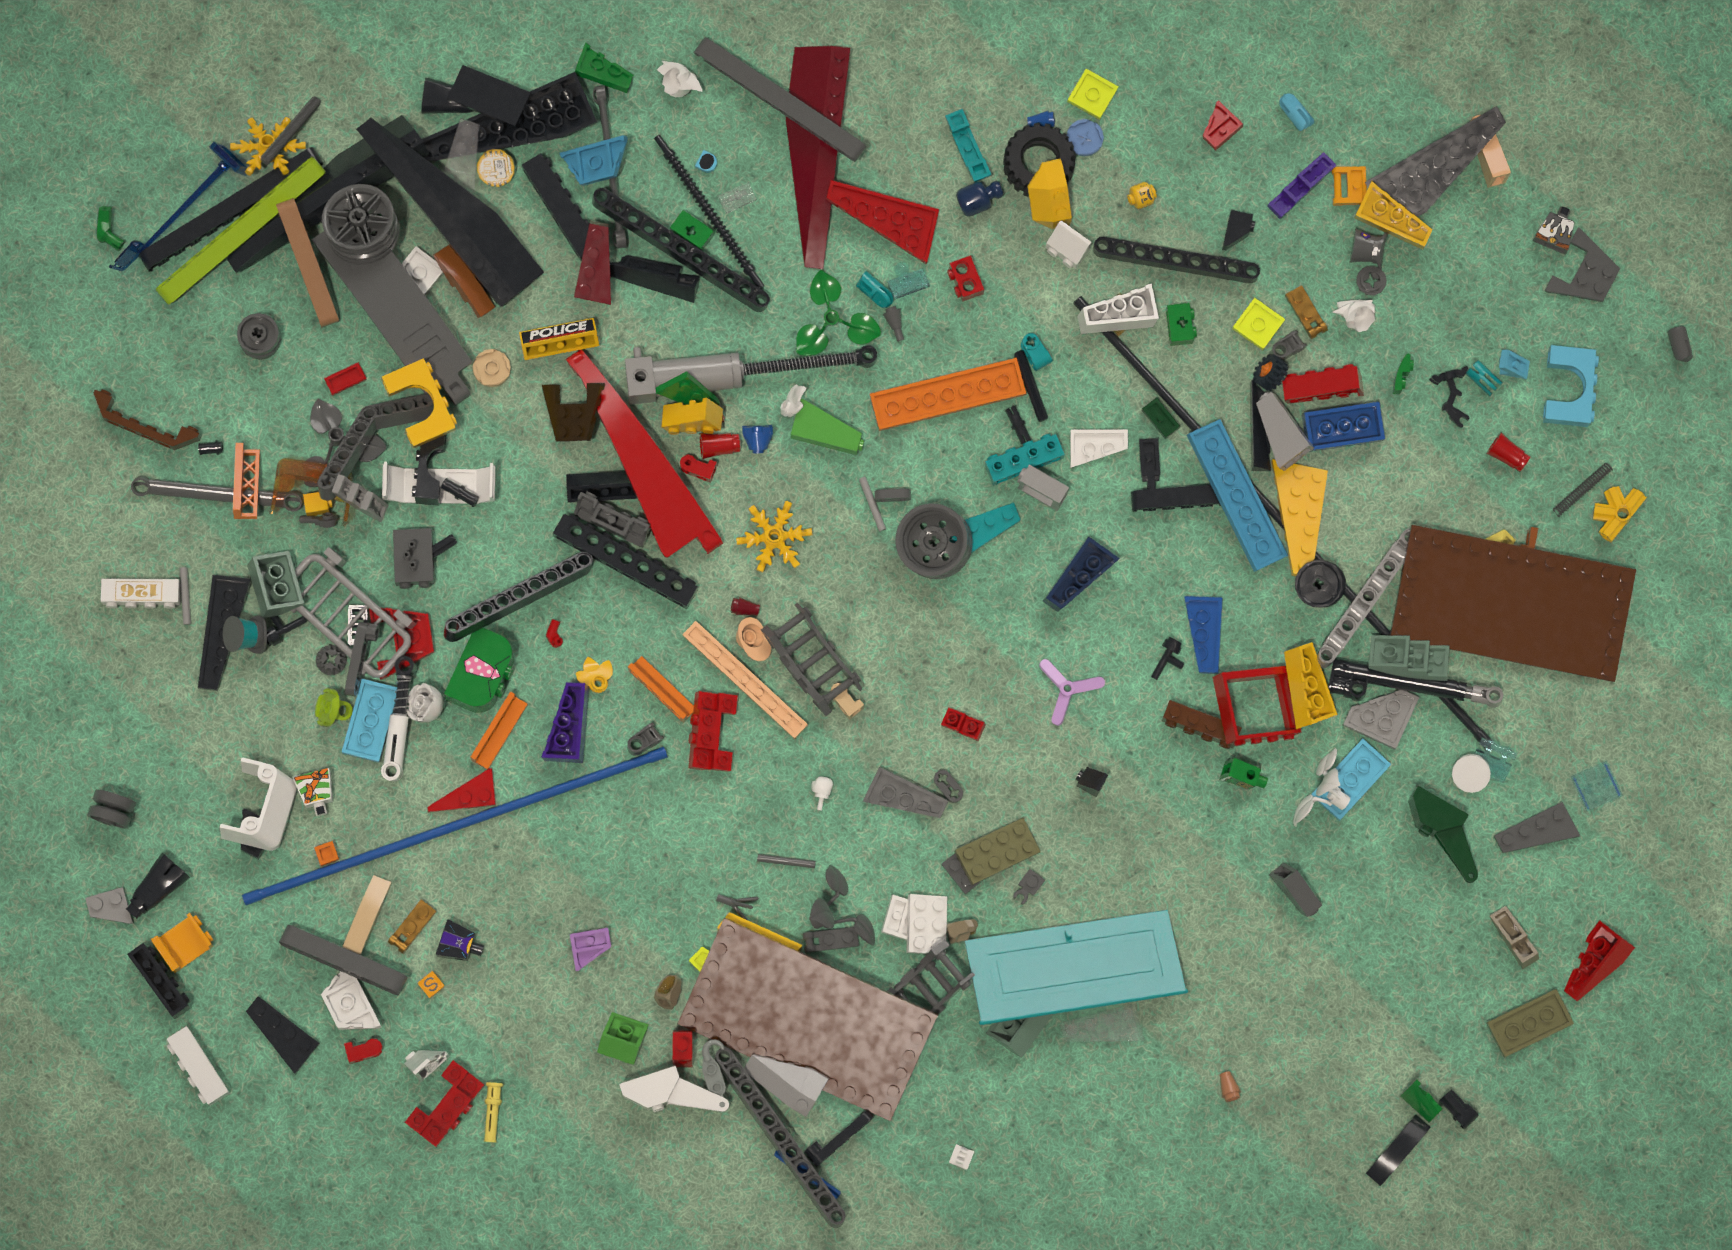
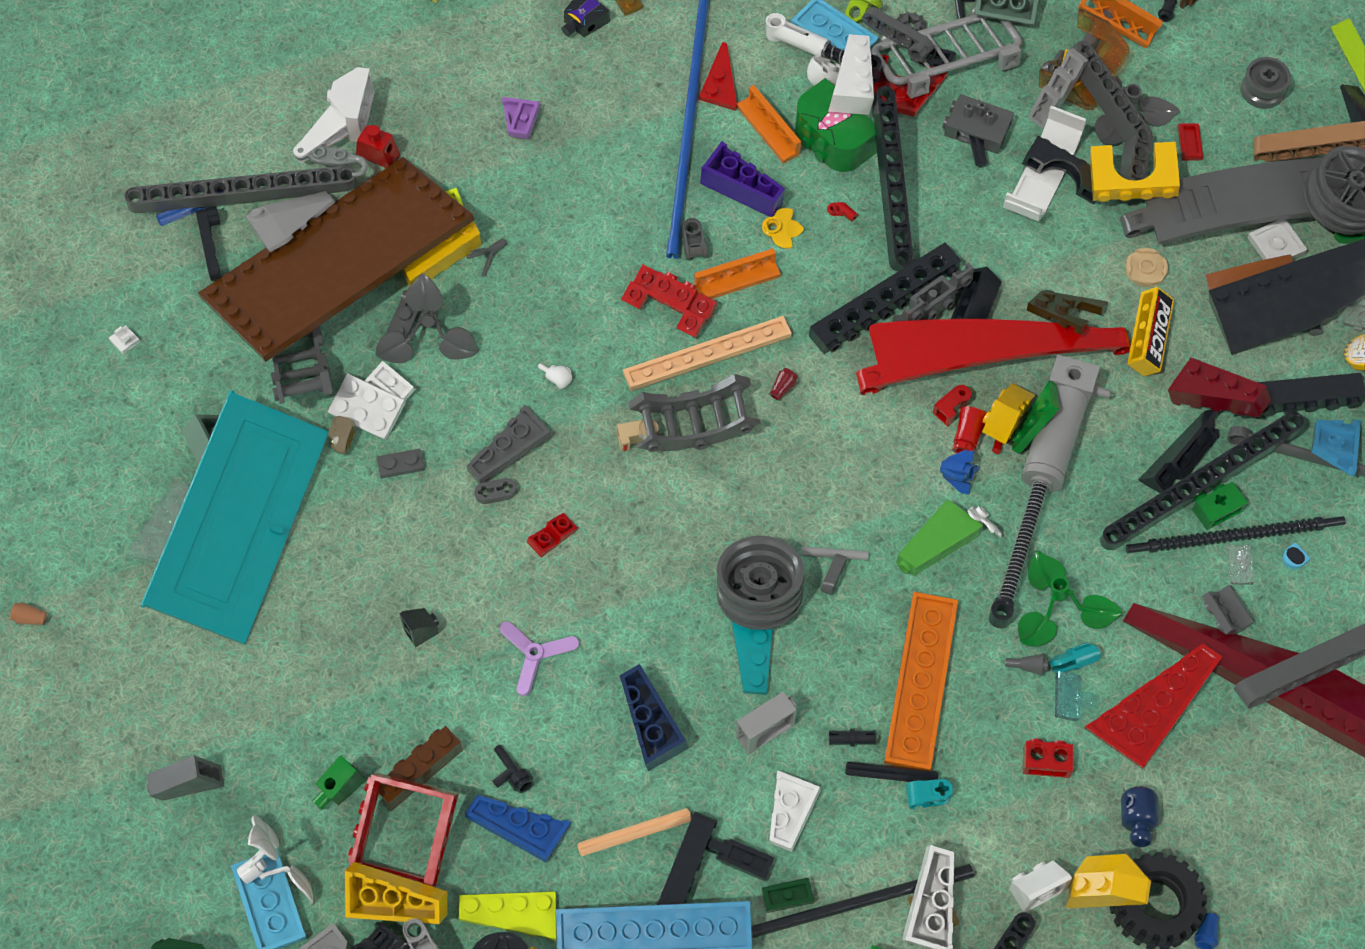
camera: 120 degrees right, 15 degrees down
(437, 666) = (854, 81): none -> white wedge
(459, 492) = (1027, 183): black pin -> none
(622, 1038) = (417, 106): bright green slope -> none
(668, 992) = (437, 160): dark tan rock -> none
(752, 639) = (747, 366): light nougat piece -> none
(770, 530) = (851, 442): yellow piece -> none
(780, 194) = (1228, 610): none -> dark grey bracket
(786, 861) = (505, 314): dark grey bar -> none
(967, 145) = (1208, 835): teal slope -> none
(997, 851) = (401, 504): olive plate -> none
(1030, 884) = (350, 523): dark grey plate -> none
(1032, 453) = (809, 723): teal brick -> none
(1167, 547) = (634, 832): none -> light nougat axle
(1267, 599) = (517, 912): none -> neon yellow wing

